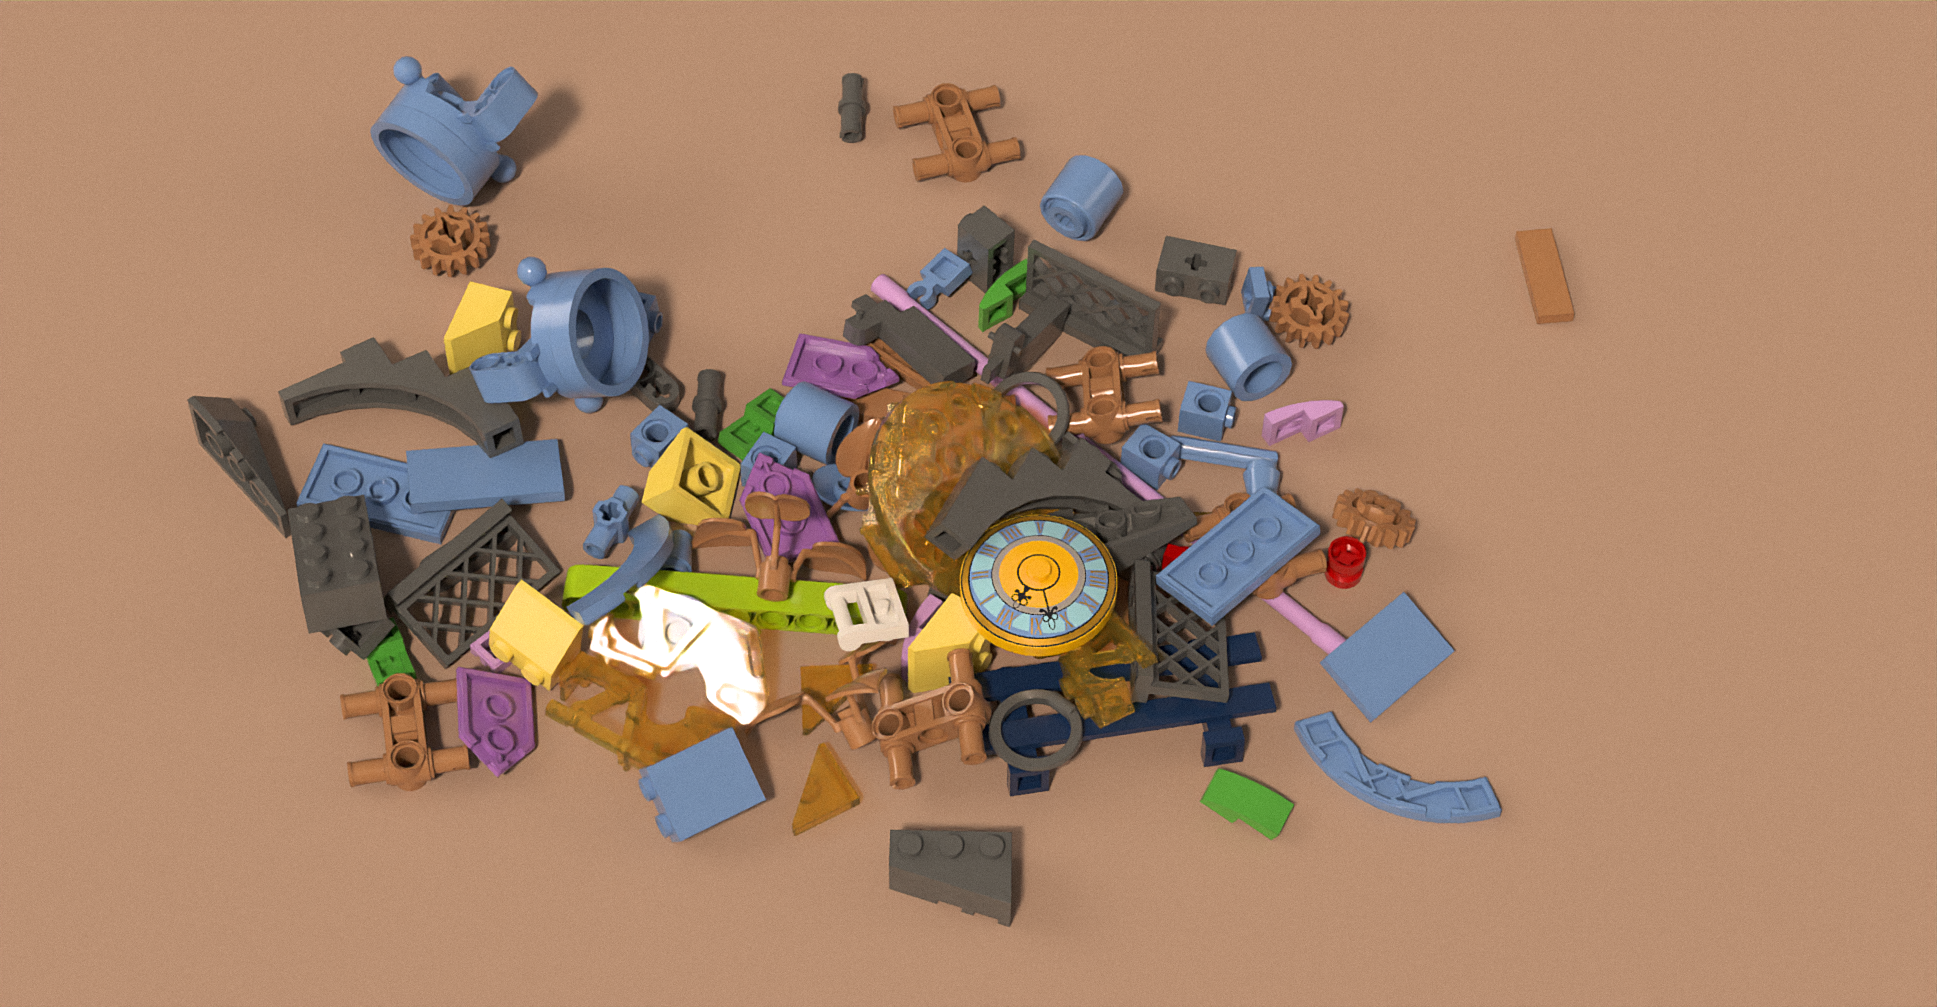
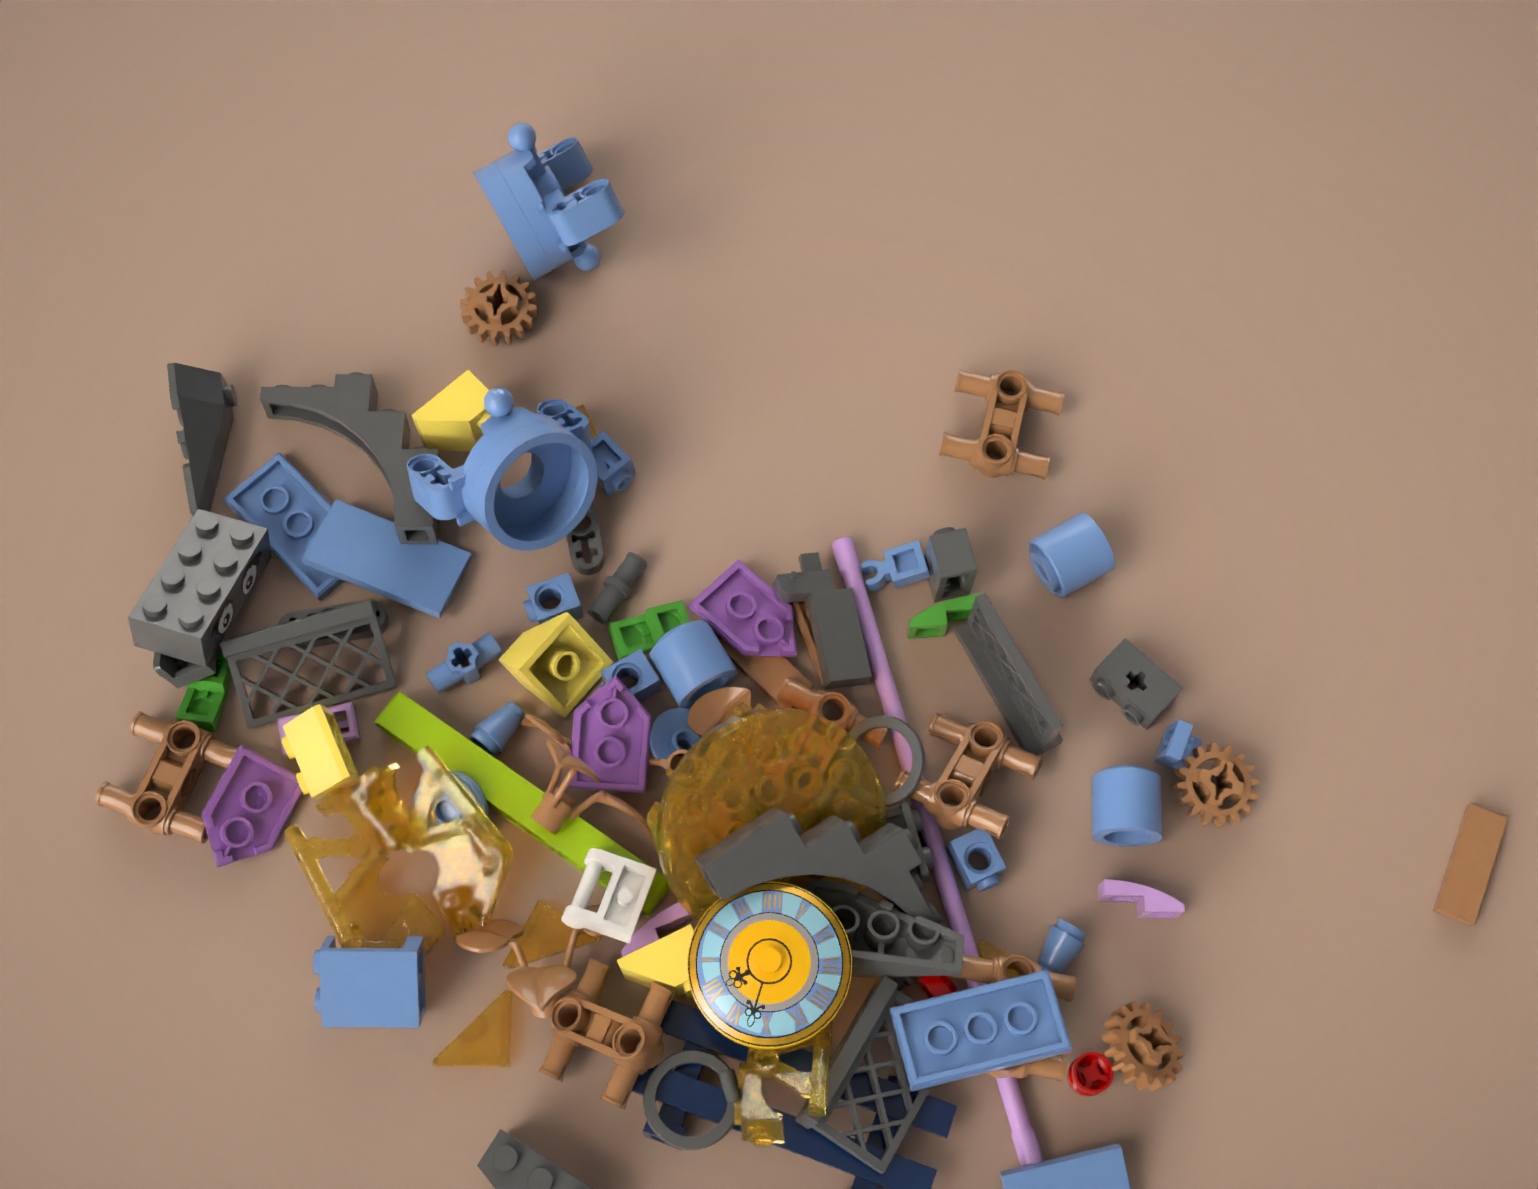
camera: 30 degrees right, 15 degrees up
(650, 551) = (436, 741): medium blue tile -> none
(851, 108) = (924, 349): dark grey pin -> none
(1019, 347) = (906, 690): dark grey piece -> none
(1206, 411) = (1056, 822): medium blue brick -> none
(1221, 453) = (1048, 890): medium blue axle -> none

